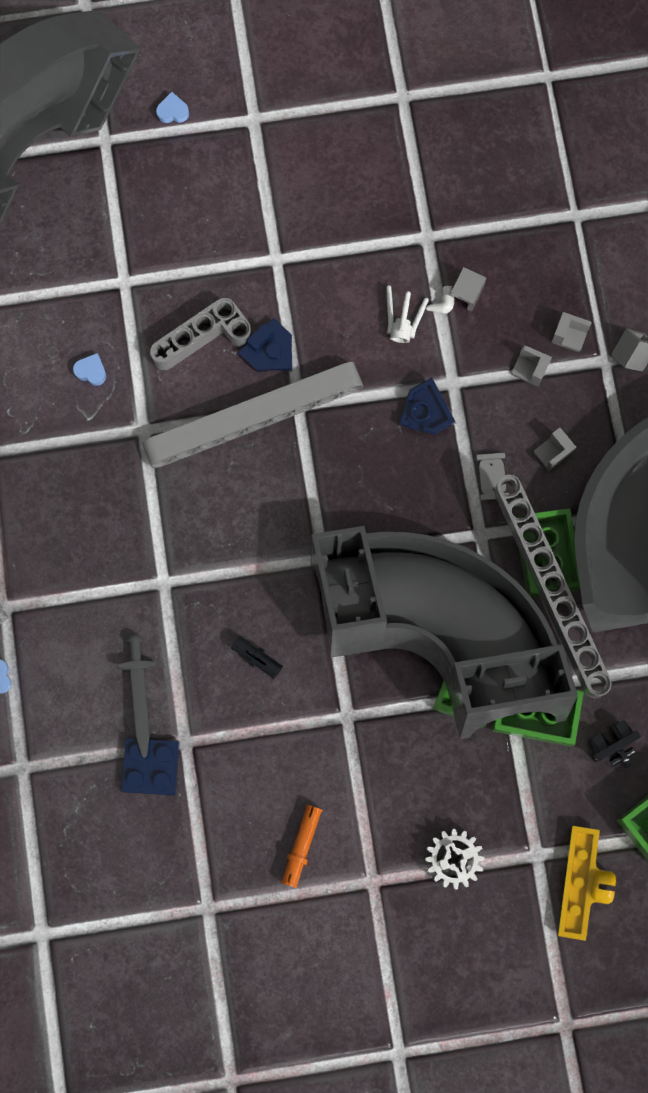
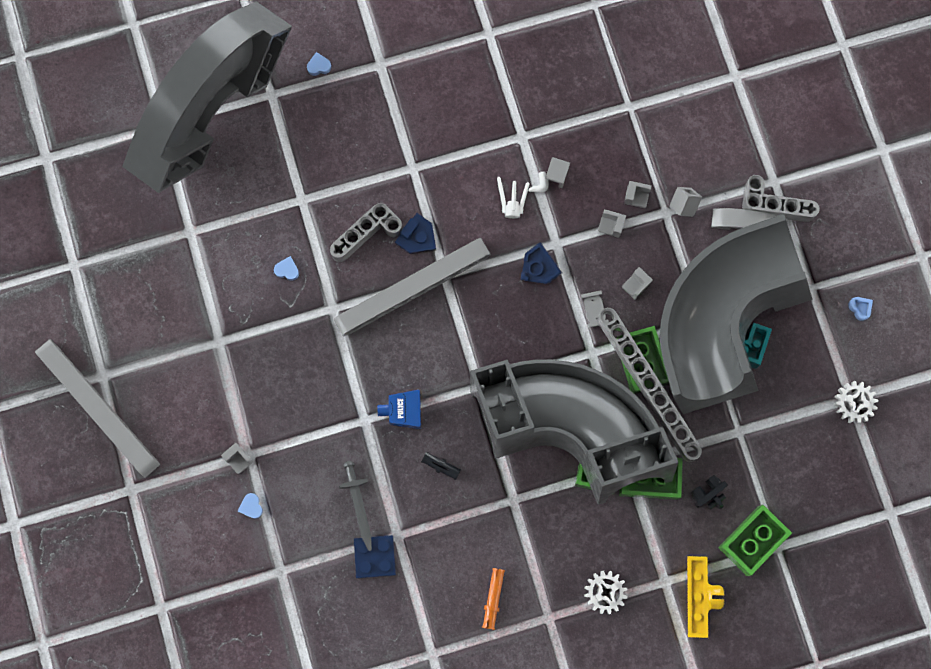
camera: 10 degrees left, 0 degrees up
(217, 575) = (403, 409): none -> blue torso

